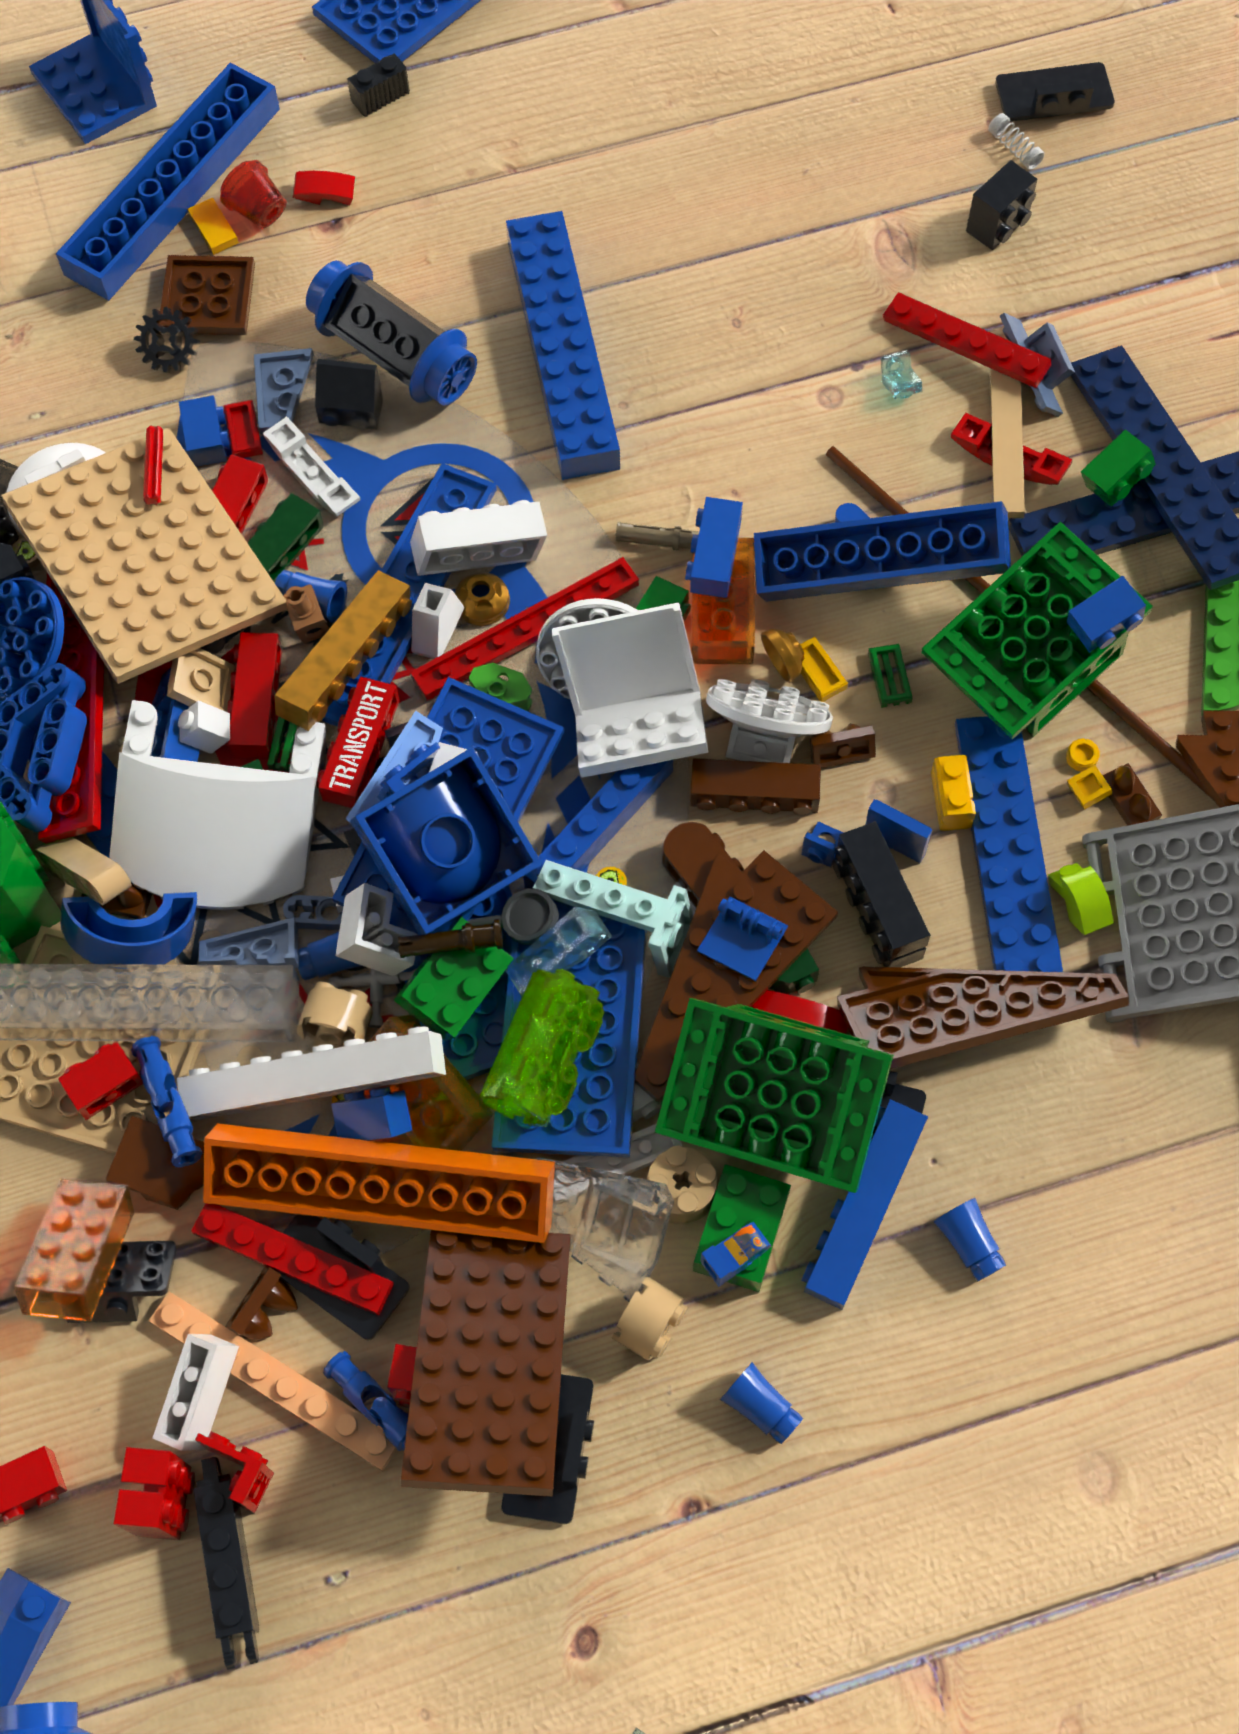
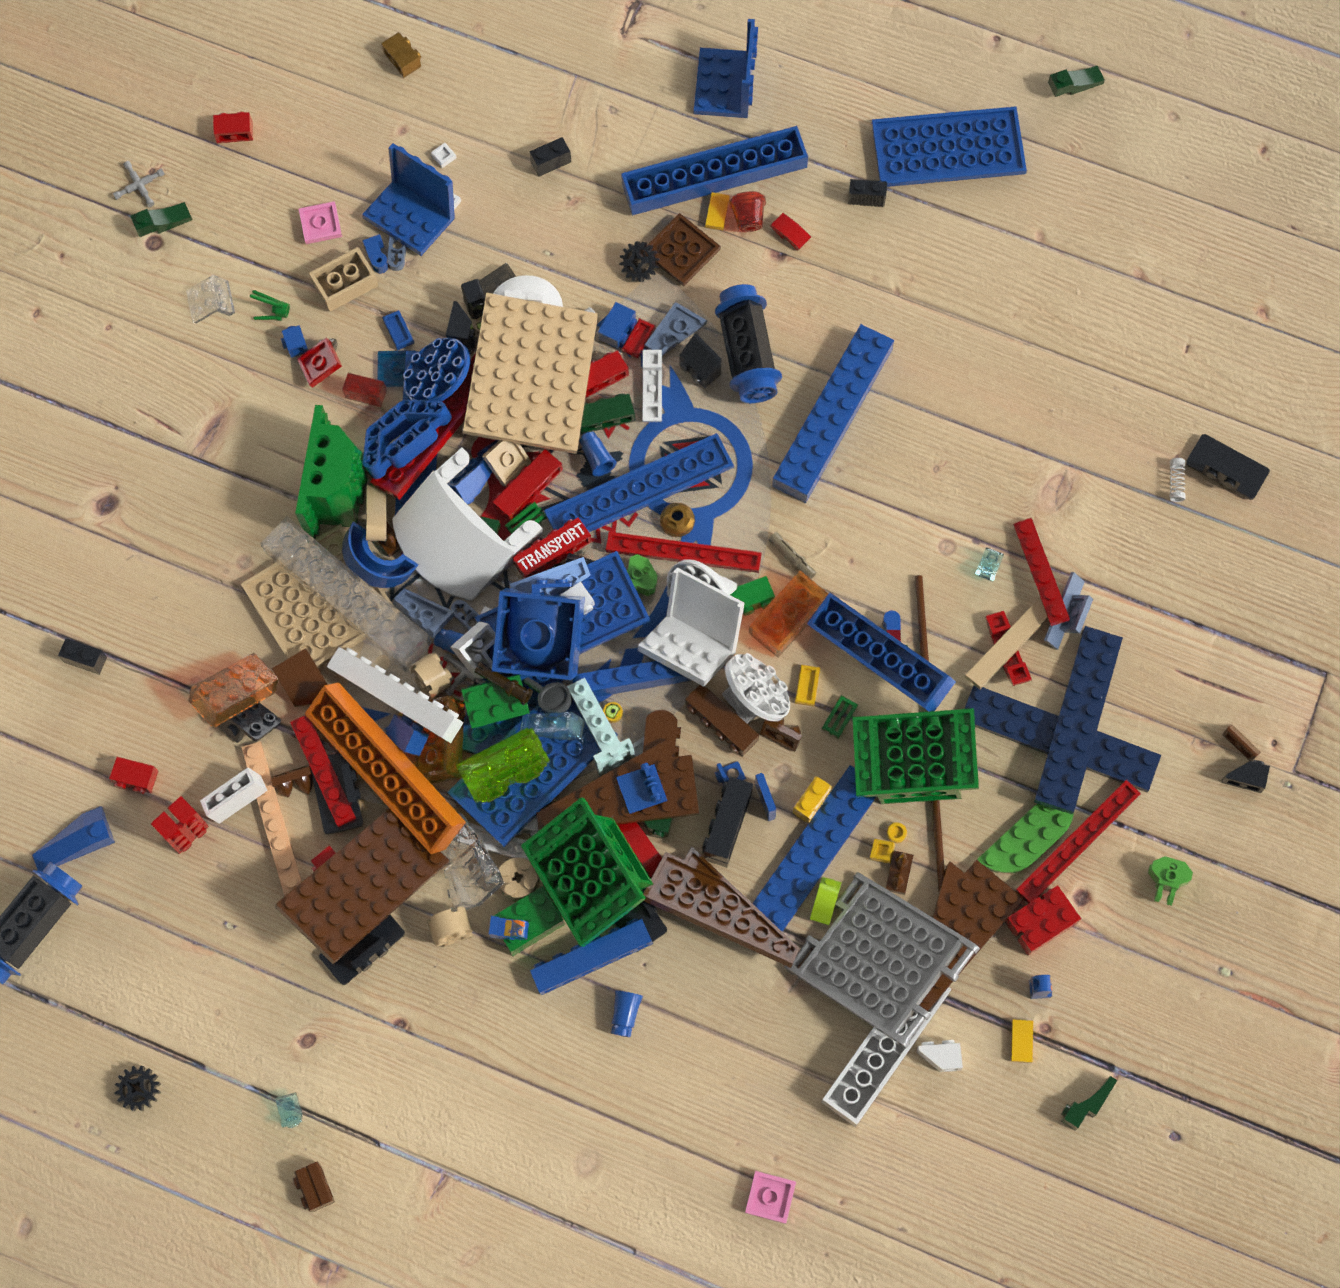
camera: 40 degrees right, 5 degrees up
(100, 1080) = (306, 620): red brick -> none
(153, 465) = (570, 330): red axle -> none
(161, 1086) = (326, 651): blue piece -> none
(204, 727) = (488, 484): white brick -> none
(226, 1563) = (188, 879): black hinge -> none
(250, 1483) = (224, 854): red bracket -> none
(305, 613) = (582, 462): medium nougat bracket -> none
(343, 651) = (581, 497): pearl gold brick -> none
(359, 1388) = (303, 851): blue piece -> none
(434, 620) = (641, 514): white slope -> none
(478, 537) = (695, 489): white brick -> none
(714, 547) = (802, 584): blue brick -> none
(762, 1404) = (467, 1004): blue plant -> none
(784, 653) = (794, 664): pearl gold piece -> none
(1001, 205) = (1128, 512): black brick -> none
(1107, 614) = (949, 773): blue brick -> none
(1118, 468) = (1047, 702): green brick -> none

